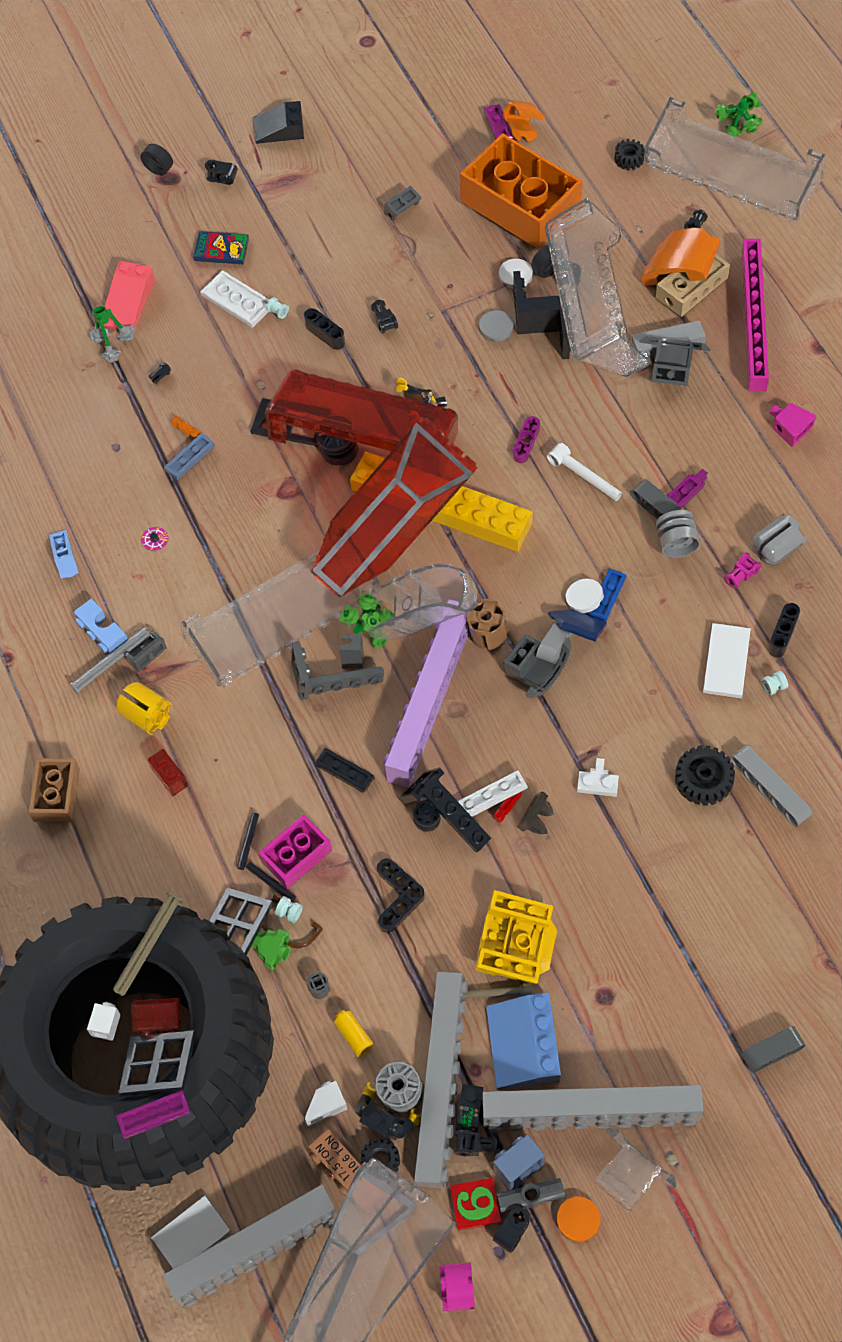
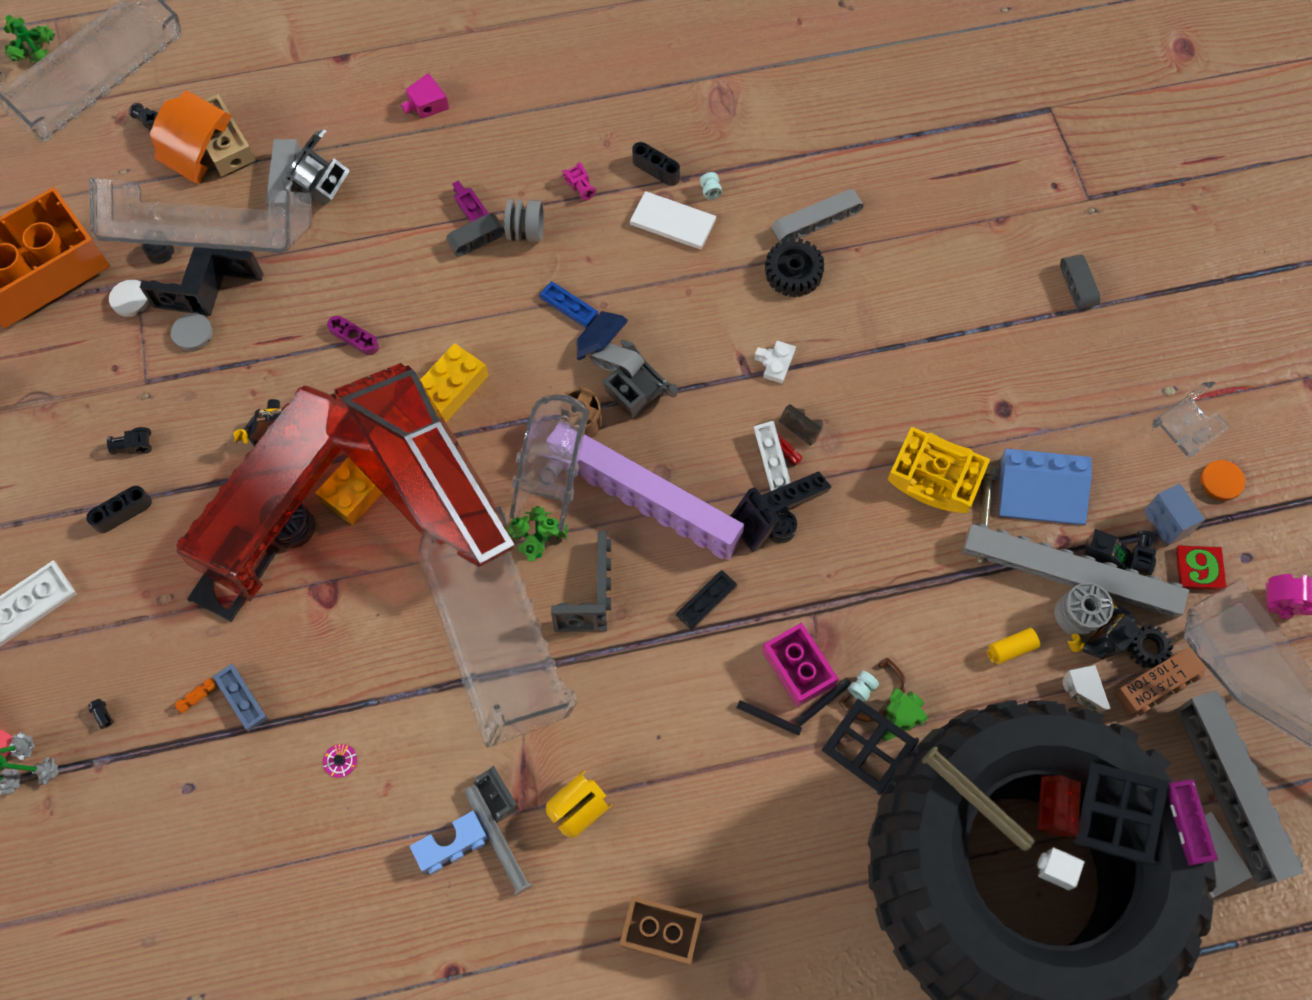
camera: 80 degrees left, 5 degrees up
(63, 554) = (327, 875): light blue slope -> none
(167, 772) = (667, 791): clear red brick -> none
(277, 308) = (64, 557): light aqua bush -> none
(321, 989) = (954, 675): dark grey wheel -> none
(352, 654) = (572, 554): dark grey hinge -> none
(405, 897) = (869, 567): black beam -> none
(509, 1232) = (1231, 538): black piece -> none
(542, 262) = (132, 259): black tyre -> none
(545, 1192) = (1204, 534): dark grey piece -> none
(561, 453) = (388, 307): white piece -> none
(584, 595) = (565, 323): white tile -> none
(592, 1107) = (1125, 439): light grey brick -> none
(629, 161) = (17, 146): black tyre -> none
(754, 315) = (284, 93): dark pink brick -> none
(778, 540) = (557, 140): light grey cylinder -> none

